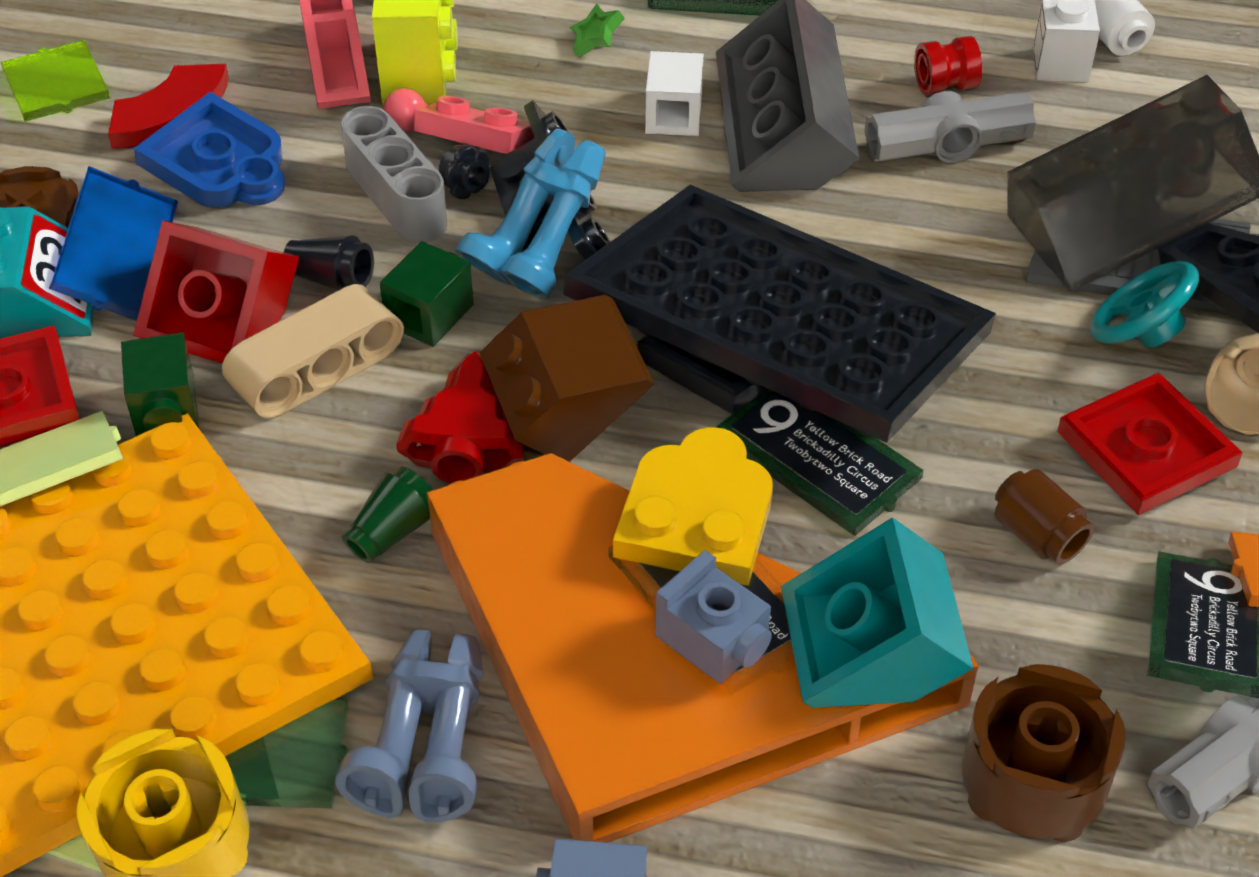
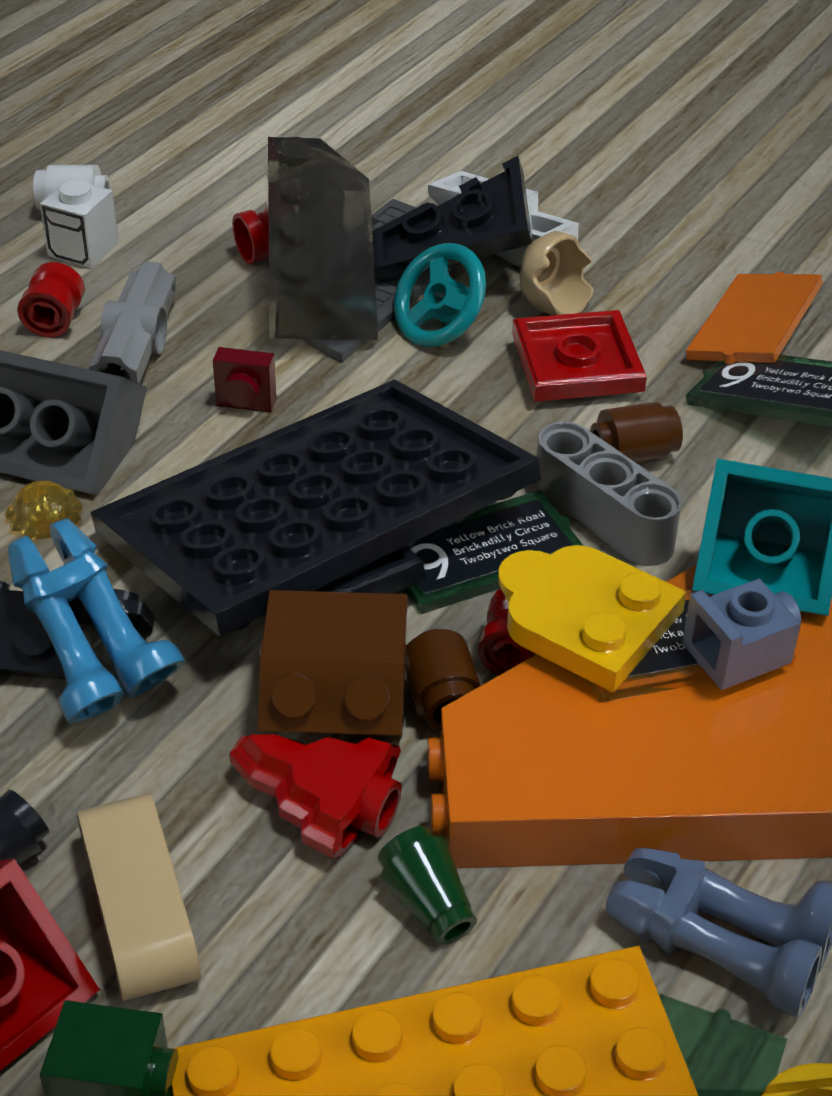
camera: 70 degrees left, 5 degrees down
(428, 292) = (111, 757): dark green brick -> none
(616, 450) = (438, 672): none -> reddish brown brick
(695, 163) = (40, 506): none -> clear yellow animal
(923, 217) = (244, 379): none -> dark red plate
(945, 487) = (608, 493): none -> light grey beam

